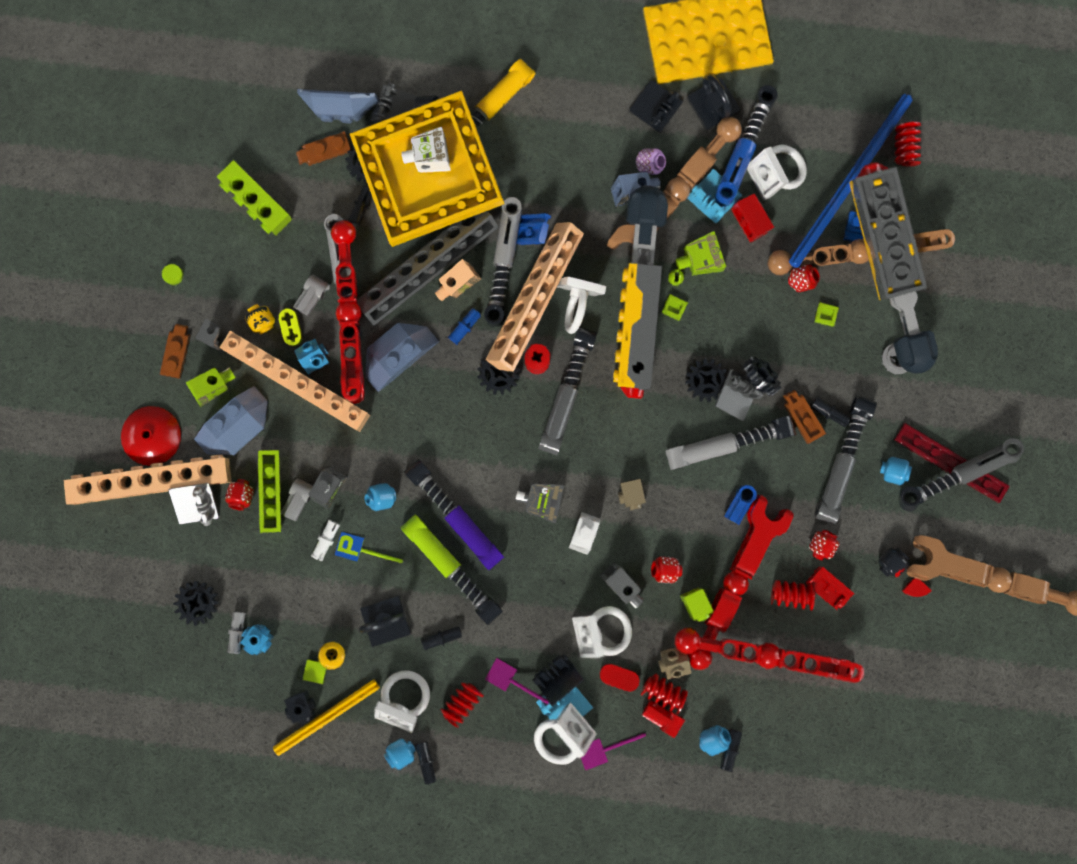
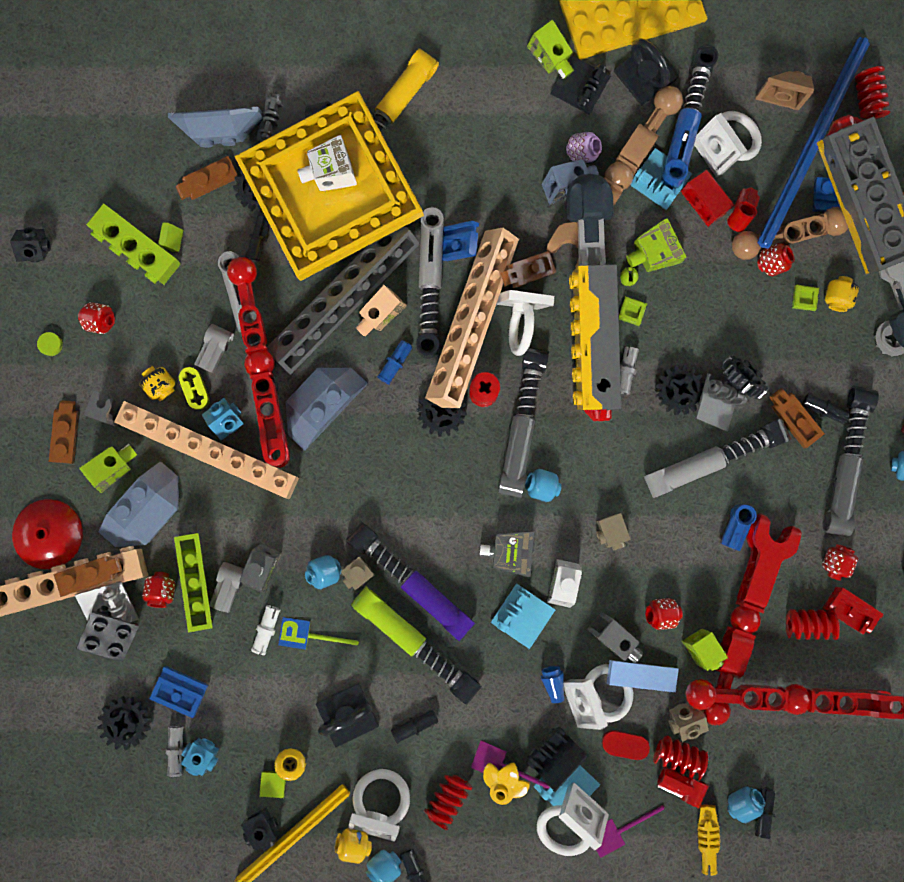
camera: 15 degrees left, 0 degrees up
(167, 188) = (30, 245): none -> black brick
(181, 474) = (87, 575): none -> dark orange hinge
(191, 527) = (107, 635): none -> hinge
(215, 257) = (96, 318): none -> red head
(245, 583) = (179, 692): none -> blue plate
(286, 195) = (170, 237): none -> lime tile
(376, 731) = (352, 846): none -> yellow head
(409, 502) = (356, 573): none -> dark tan brick
(512, 693) = (505, 781): none -> yellow plate
(546, 556) = (522, 616): none -> medium azure hinge
(564, 615) = (554, 683): none -> blue cone
(577, 447) = (542, 485): none -> dark azure head
(589, 261) = (528, 270): none -> dark orange hinge
(630, 66) = (551, 49): none -> lime torso
(641, 620) = (642, 676): none -> light blue tile
(663, 357) = (627, 369): none -> light grey pin
(679, 764) = (708, 838): none -> yellow hinge
(781, 232) = (744, 209): none -> red piece
(833, 132) = (787, 89): none -> medium nougat slope
(857, 315) = (841, 294): none -> yellow head

